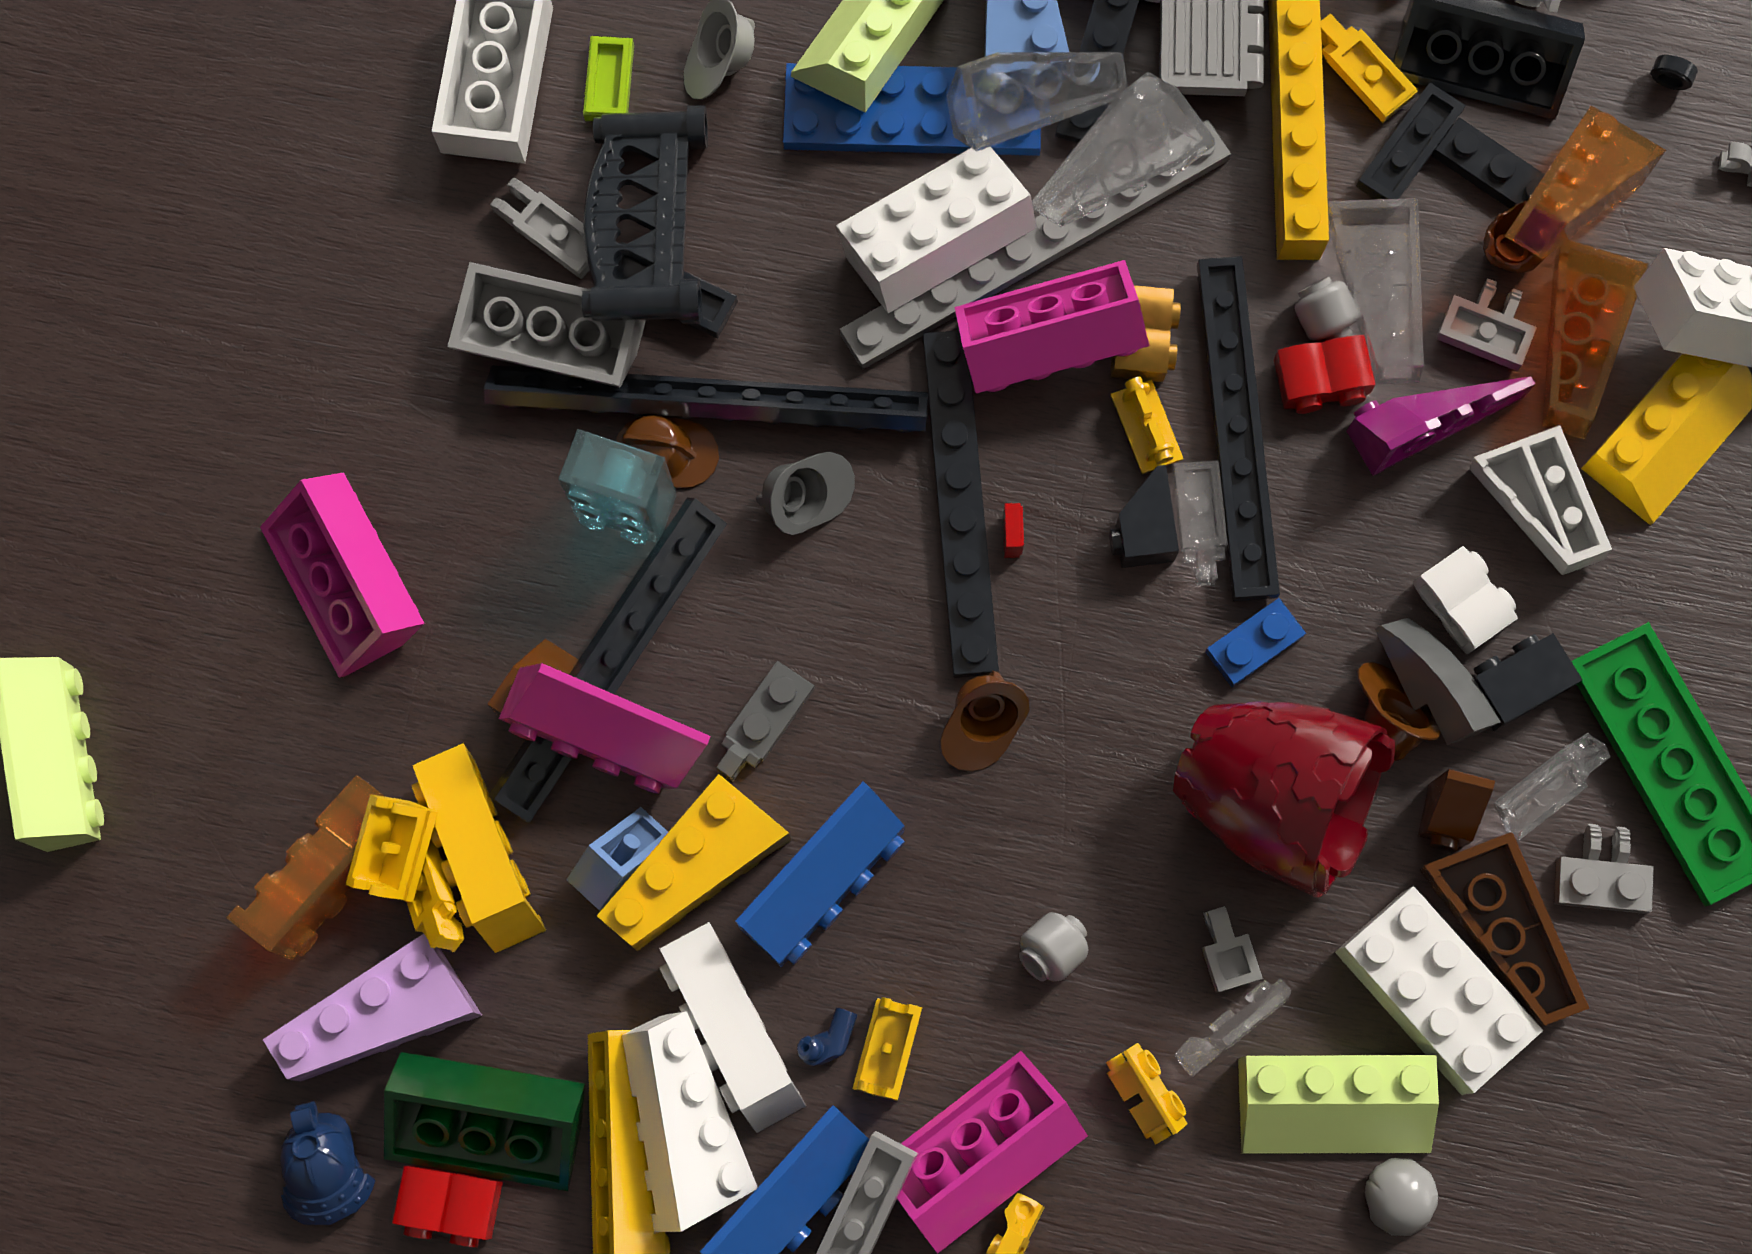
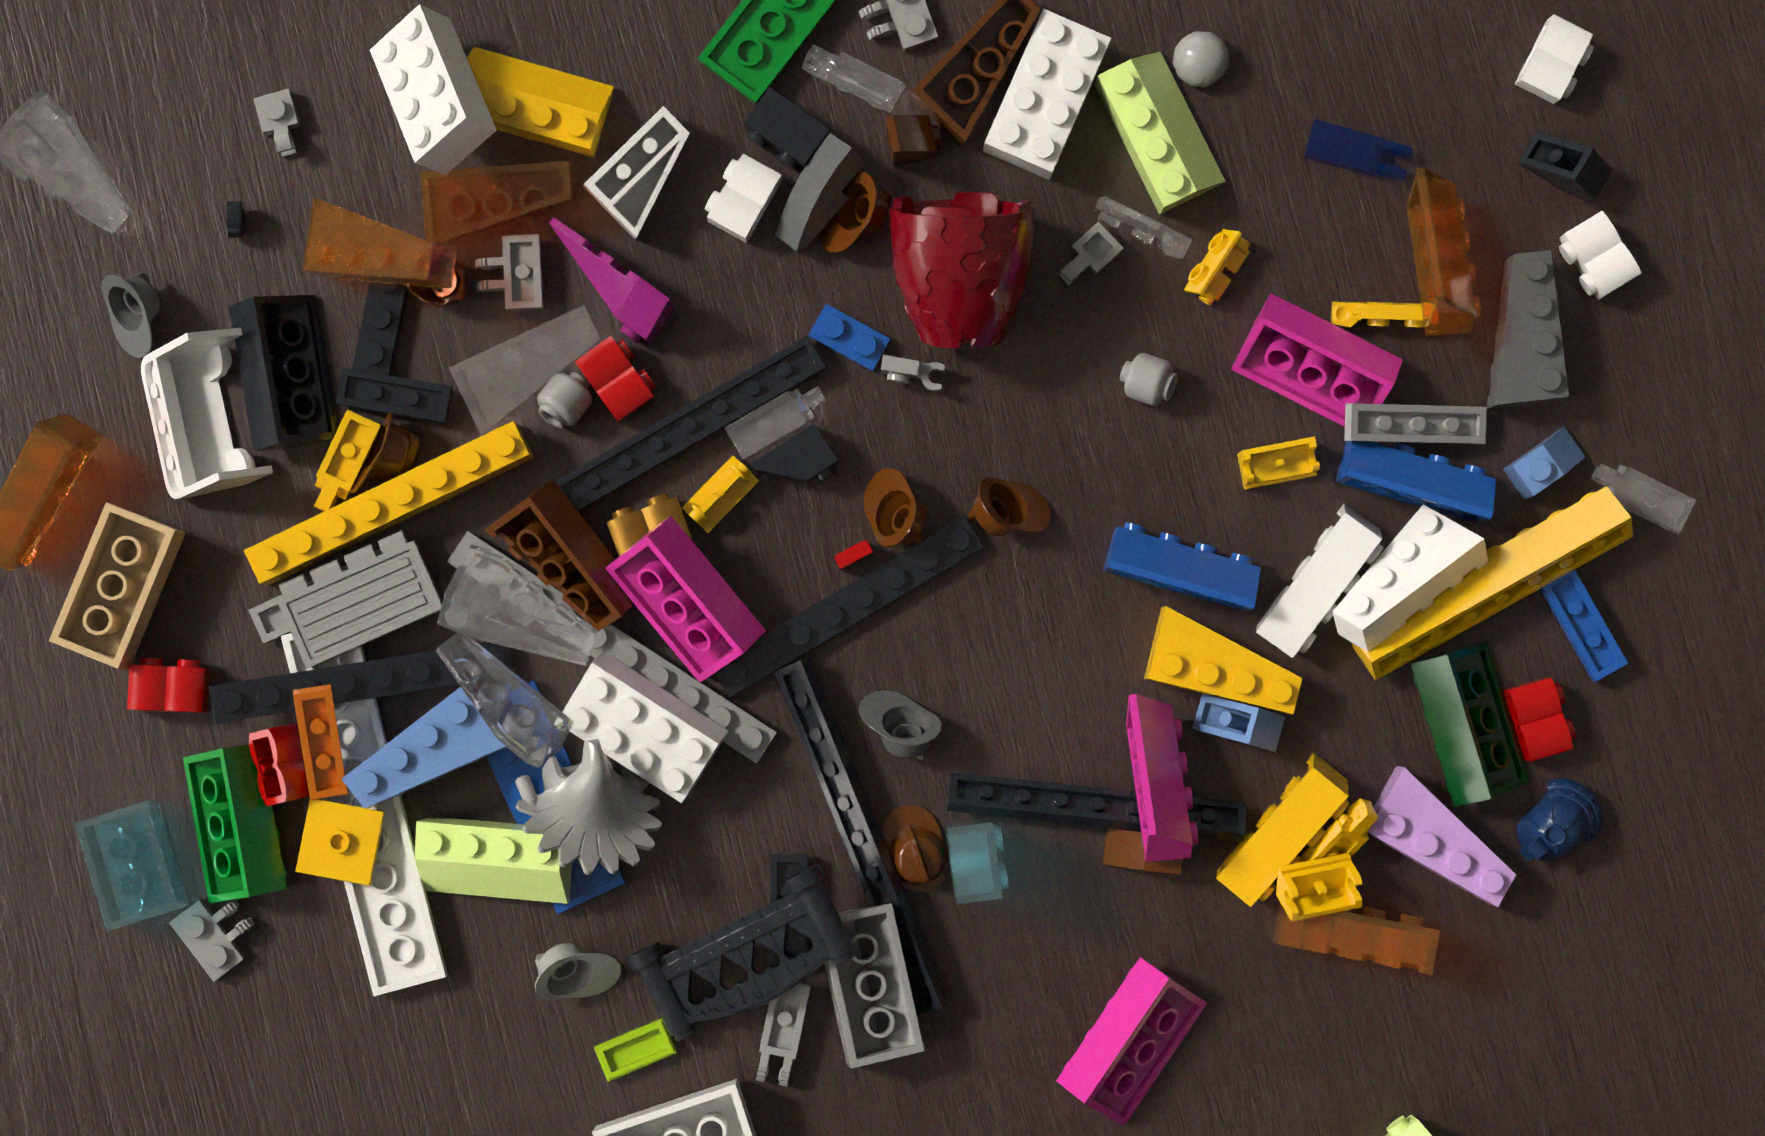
camera: 120 degrees left, 10 degrees up
(764, 719) = (1084, 670): dark grey hinge -> none
(828, 1044) = (1294, 506): dark blue arm -> none
(872, 124) = (590, 811): none -> light grey piece
(1038, 595) = (894, 509): none -> reddish brown piece
(1161, 232) = (564, 552): none -> reddish brown wedge
(1192, 679) = (901, 369): none -> light grey plate
(1349, 112) = (391, 454): none -> reddish brown piece

